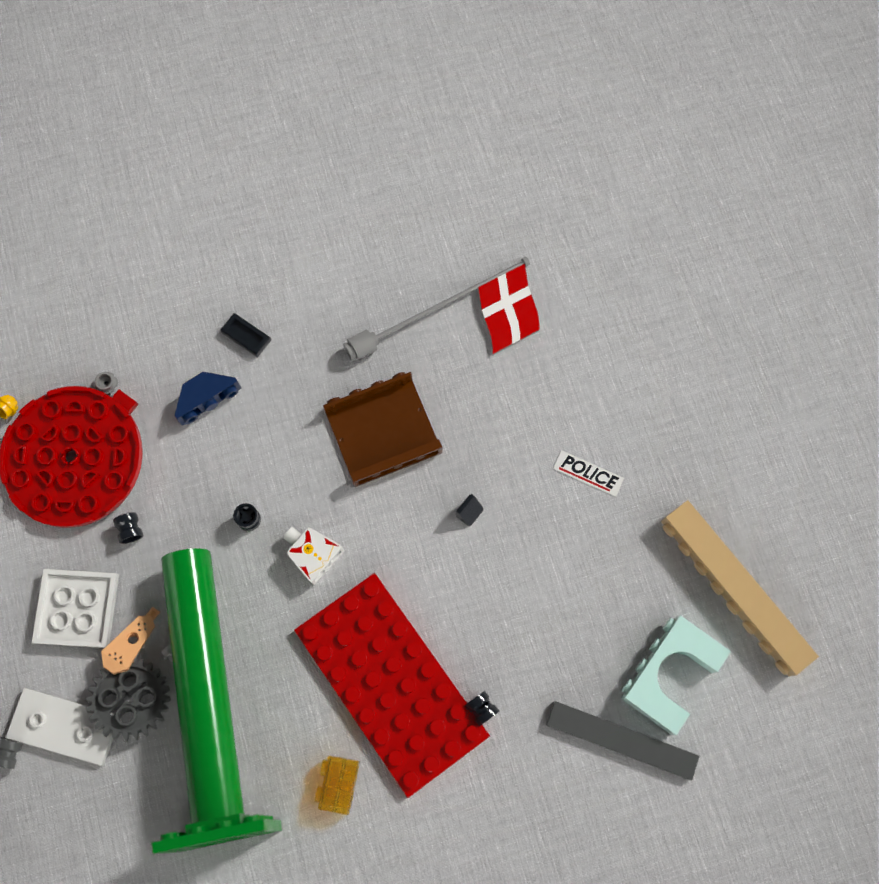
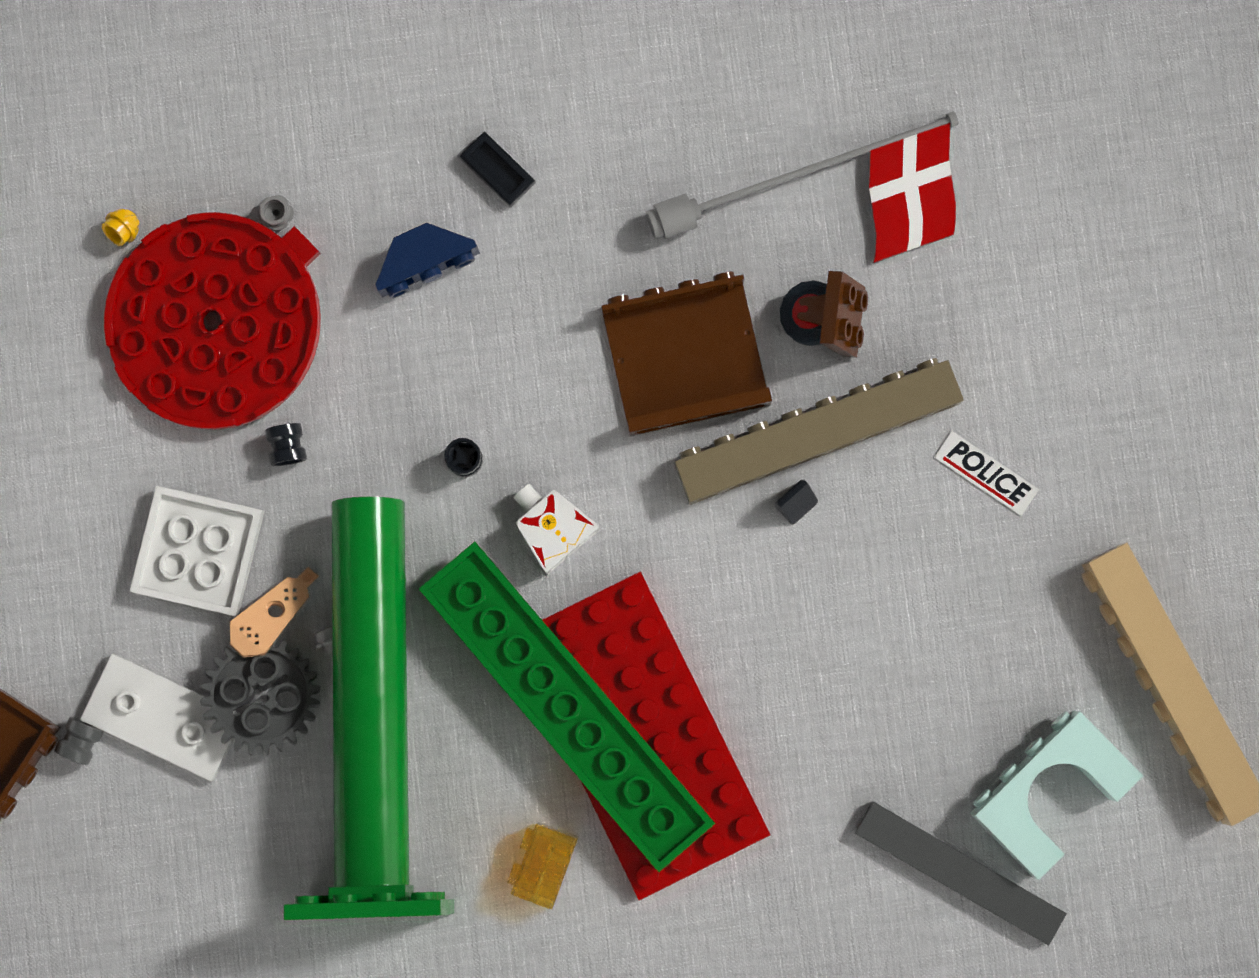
camera: 15 degrees right, 10 degrees up
(339, 671) = (567, 706): none -> green plate
(468, 388) = (826, 313): none -> reddish brown plate
(475, 463) = (819, 431): none -> dark tan brick
(482, 708) = (766, 794): black wheel -> none

